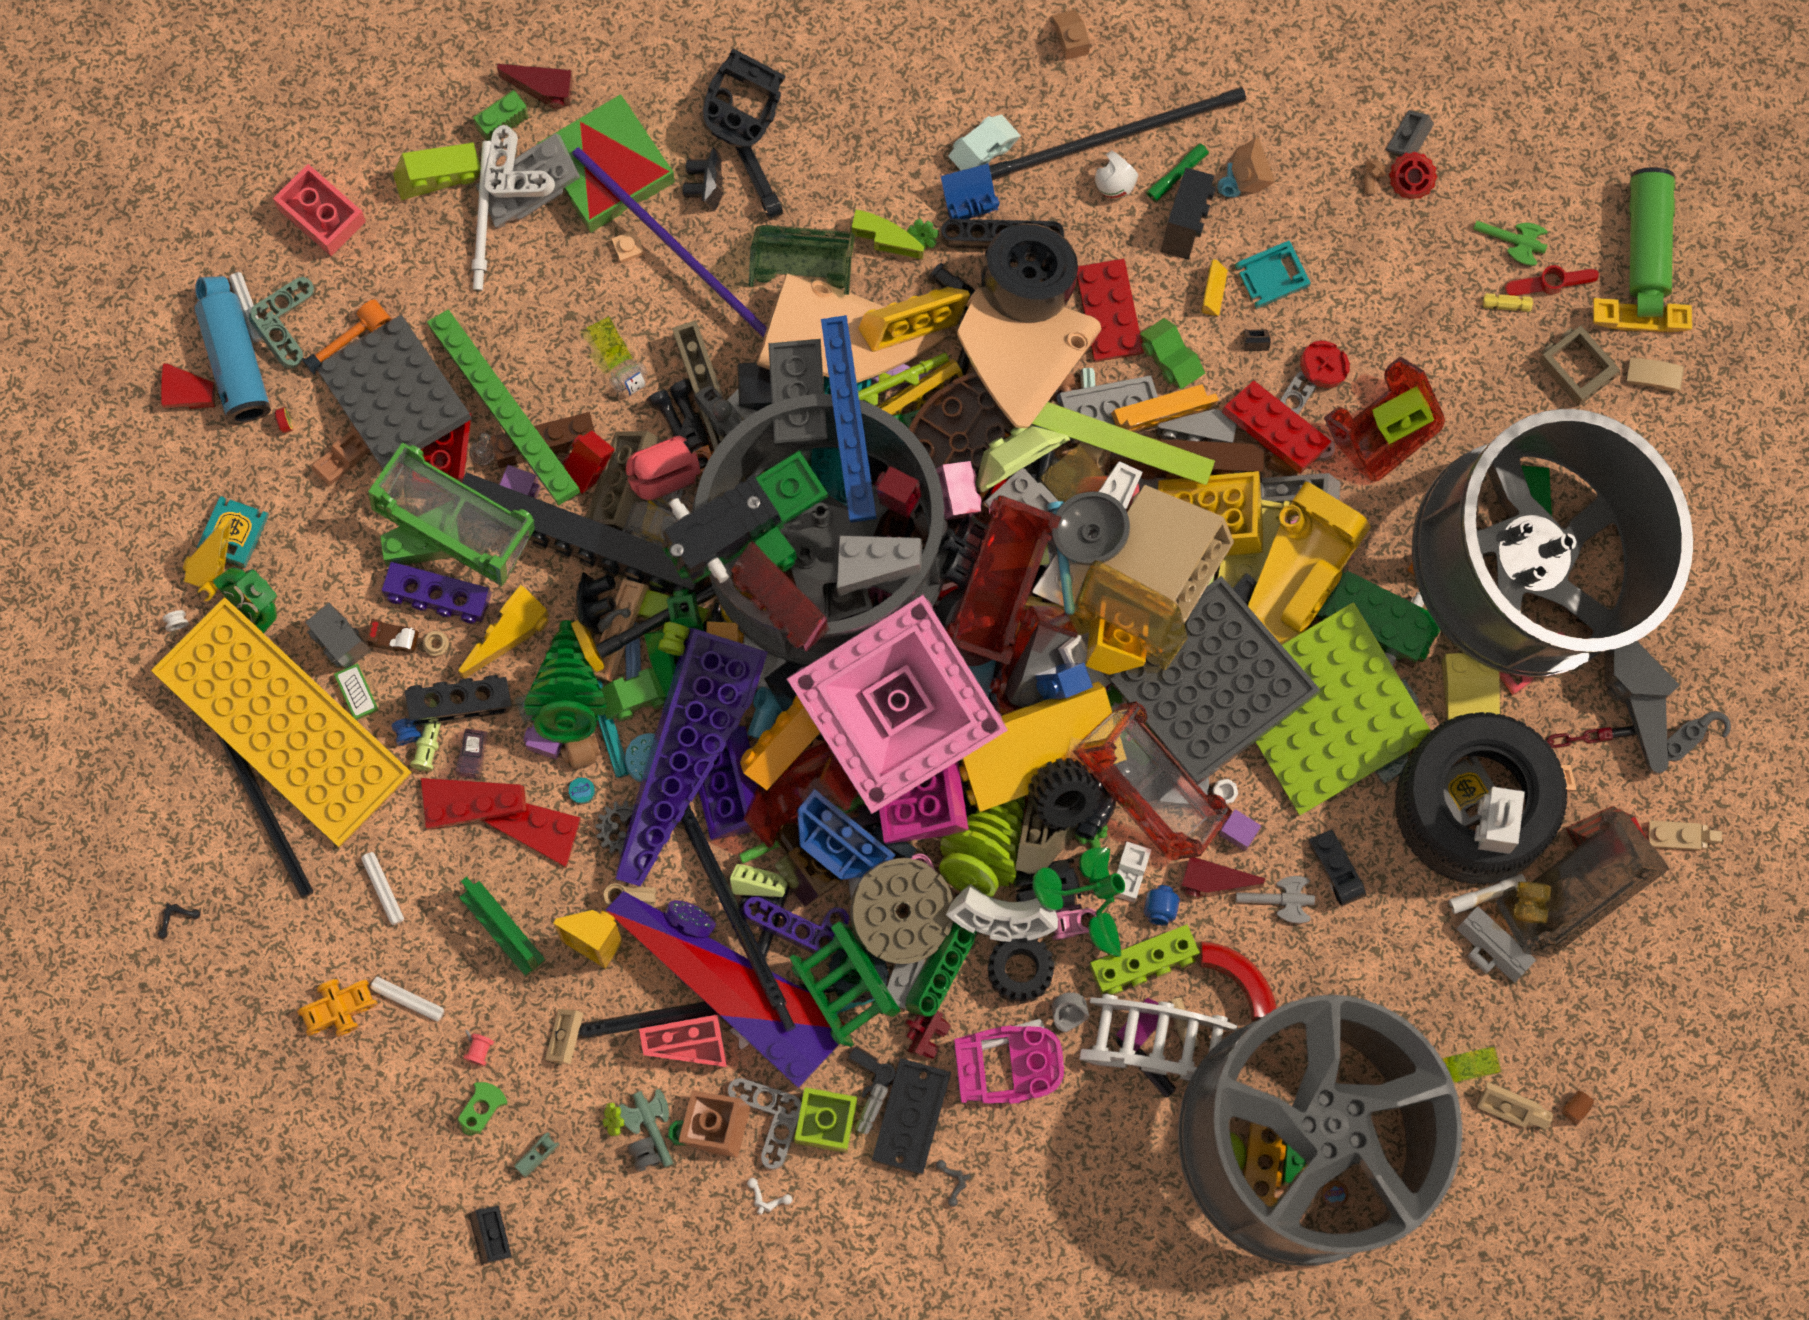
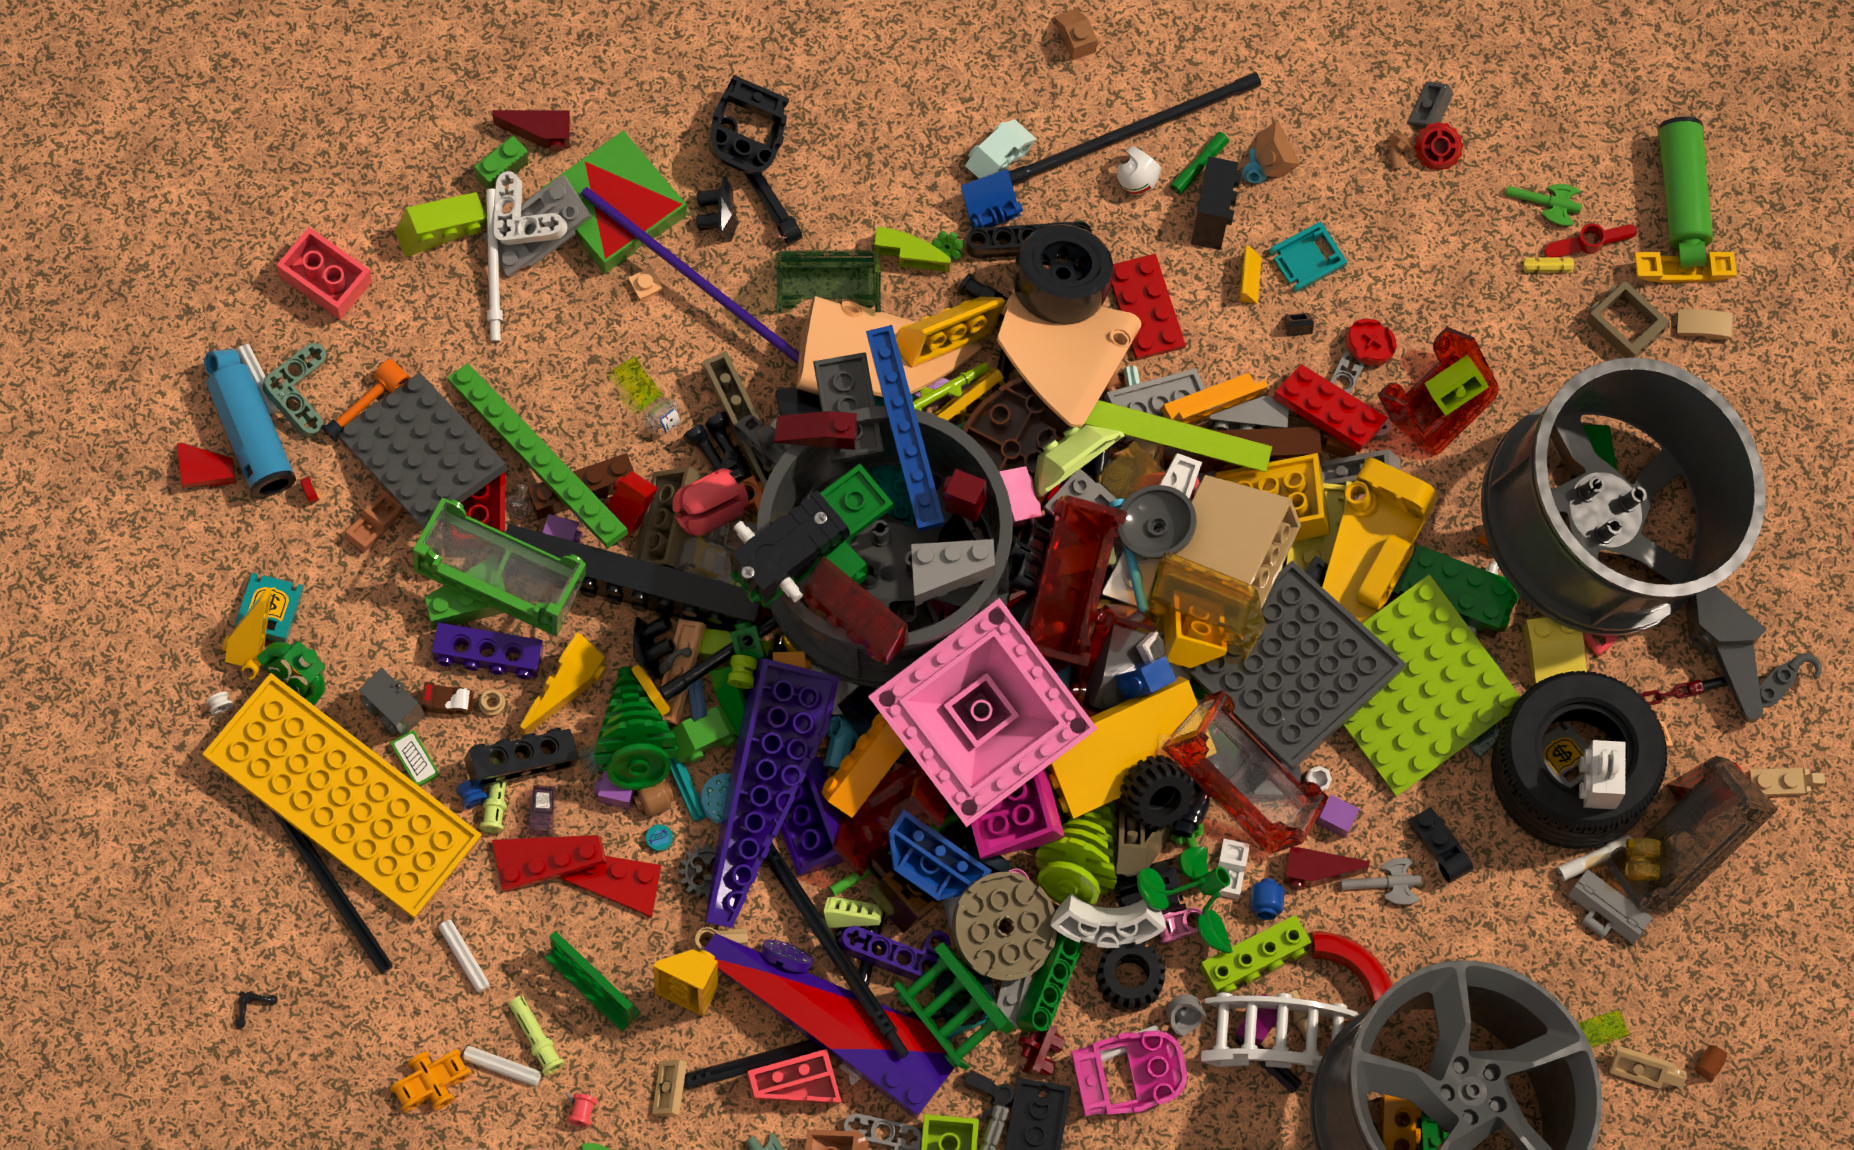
camera: 10 degrees left, 5 degrees down
(446, 982) = (541, 1045): none -> yellowish green pin
(764, 412) = (818, 429): none -> dark red slope
(1168, 350) = (1209, 340): bright green brick -> none

